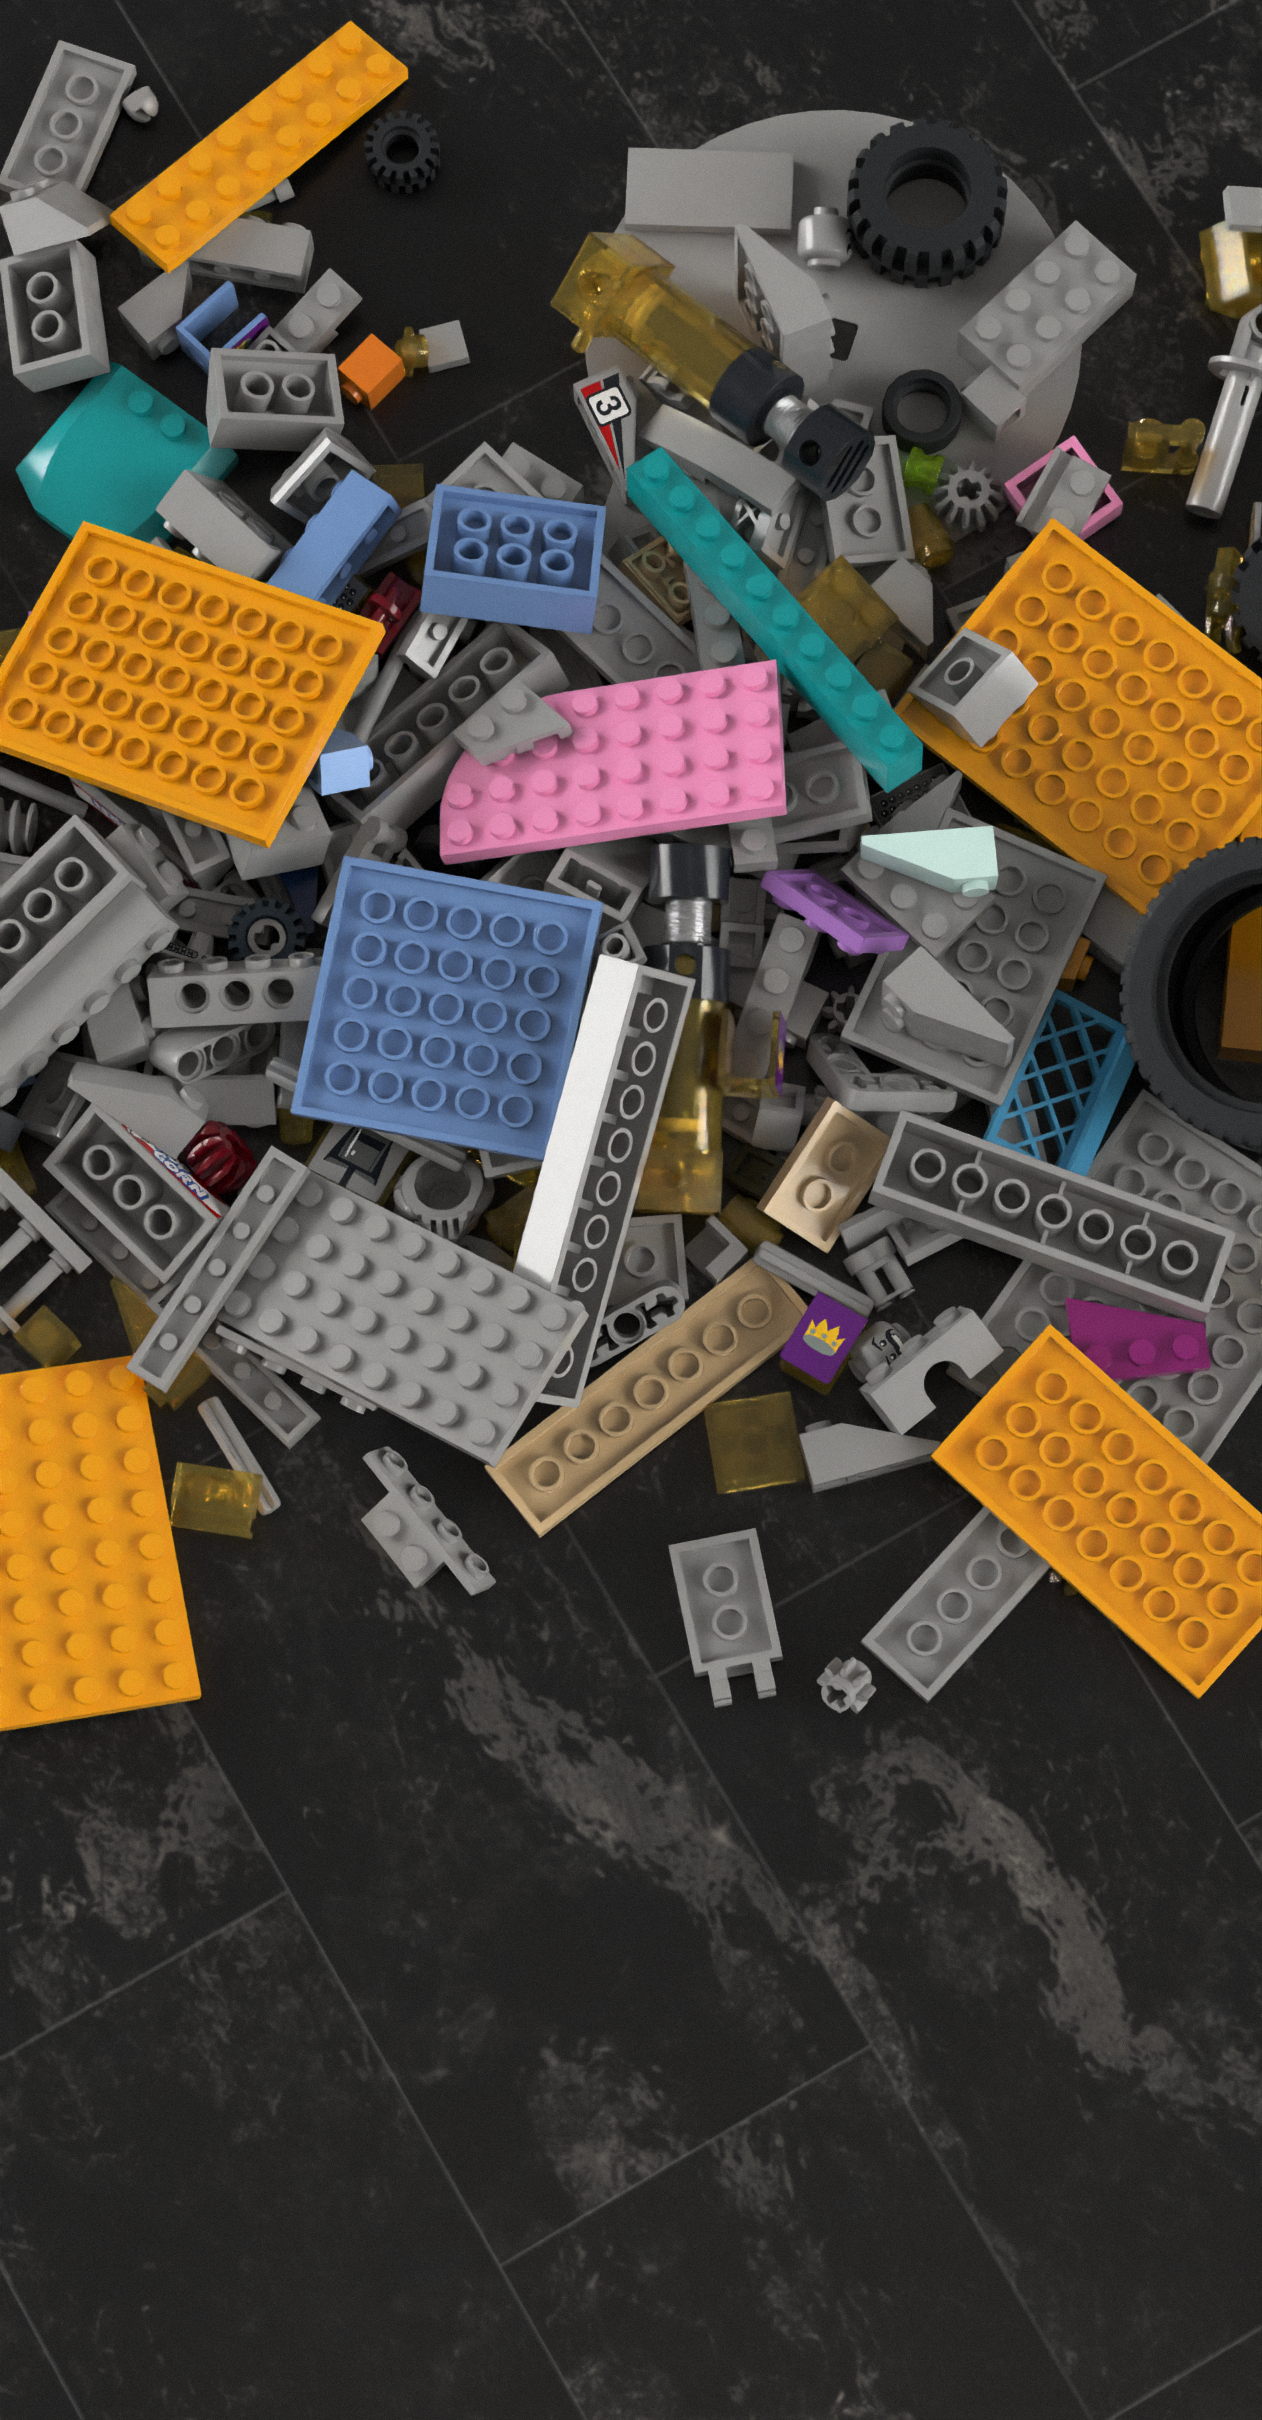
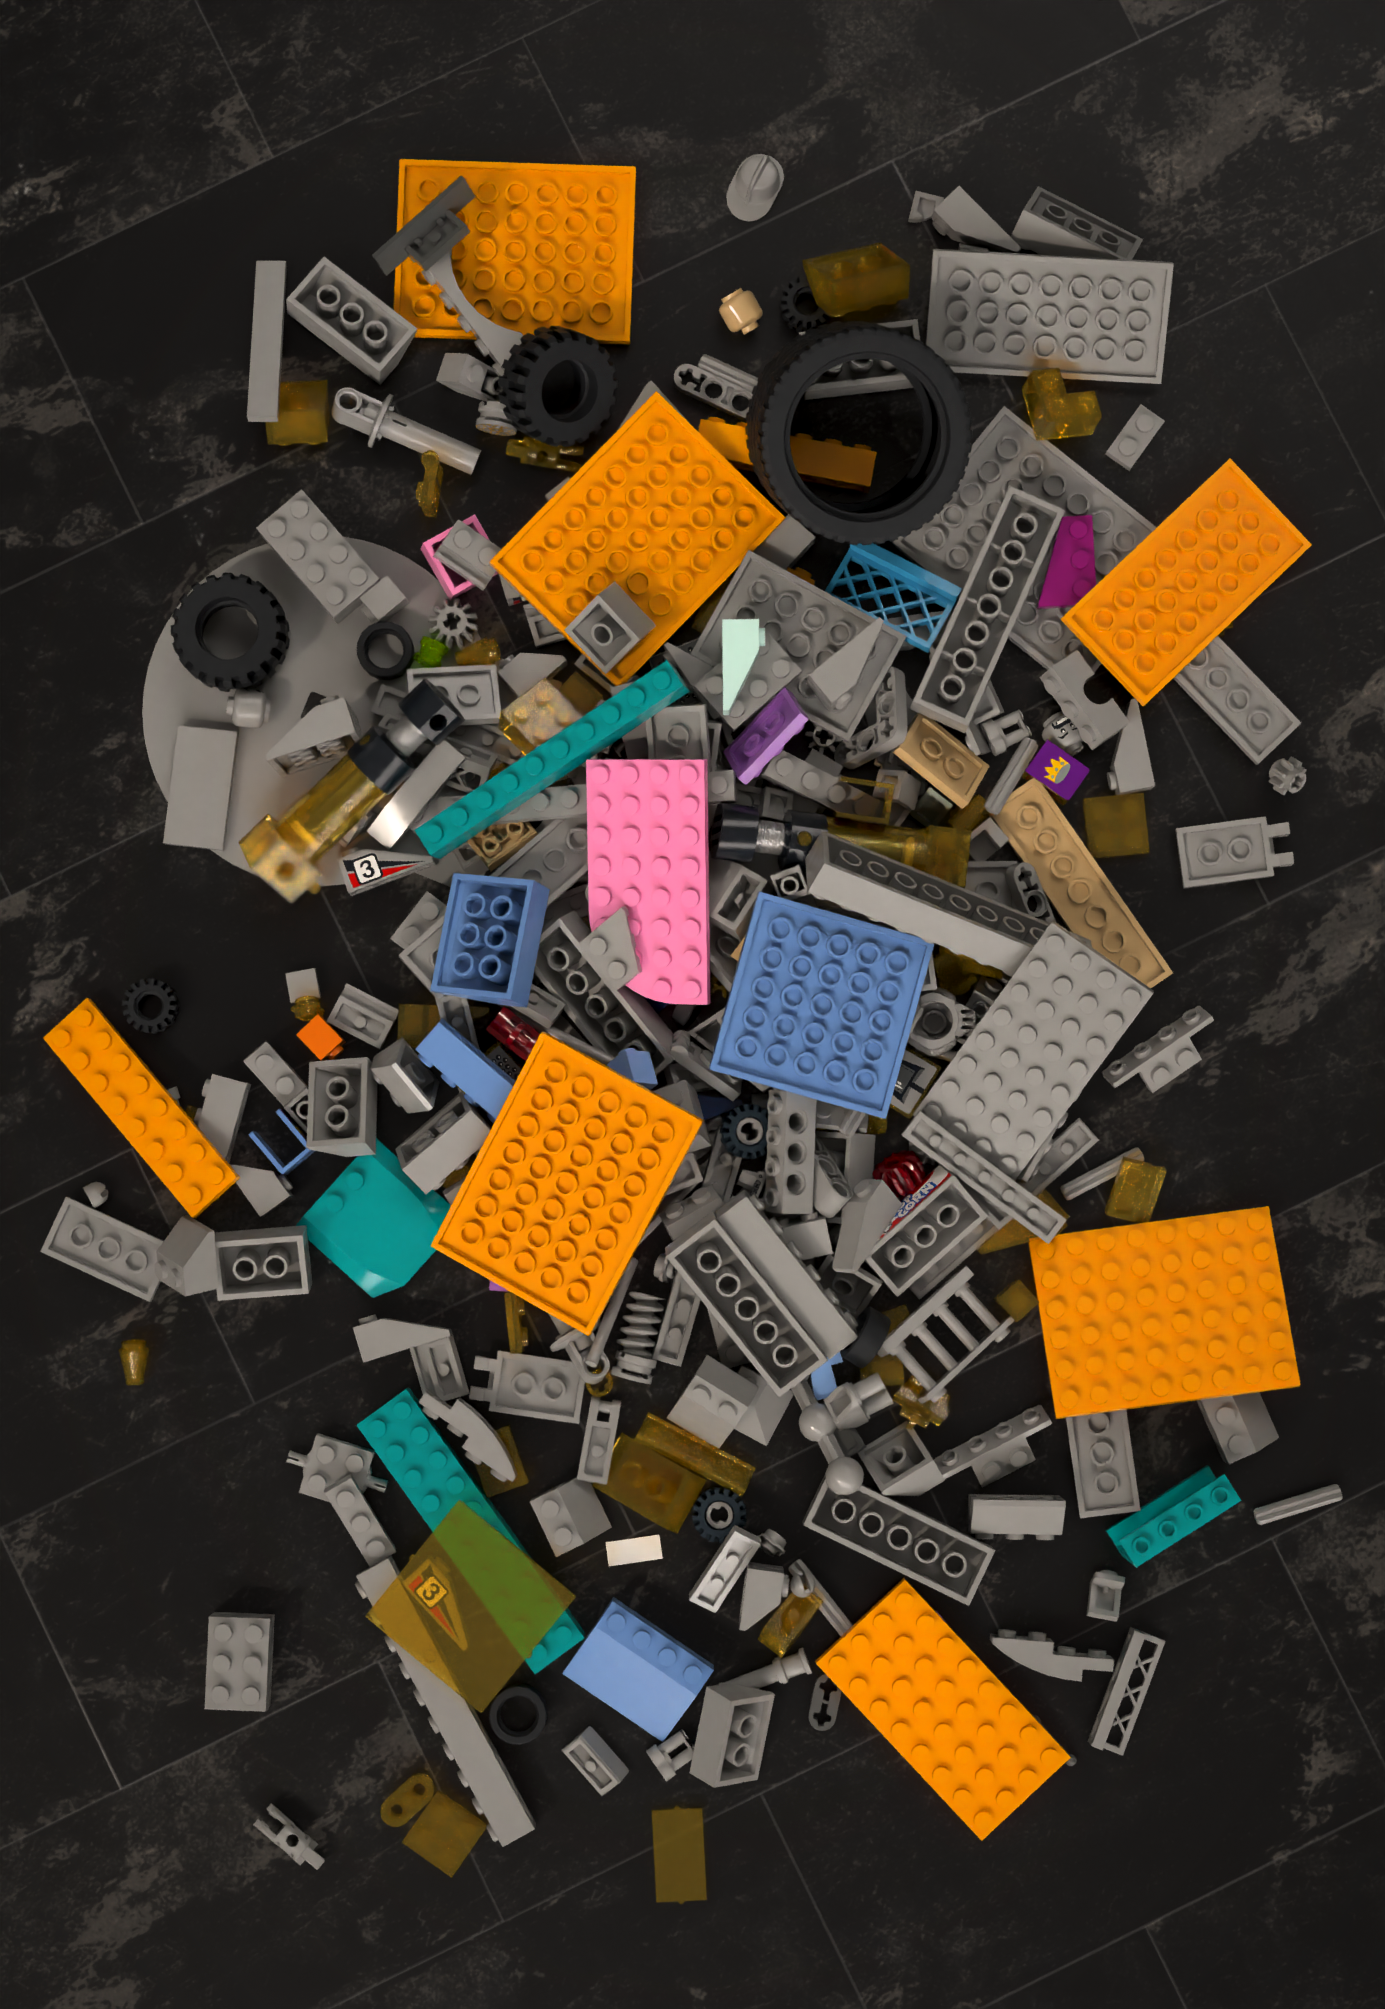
camera: 90 degrees left, 10 degrees up
(405, 424) = (363, 1016): none -> light grey plate

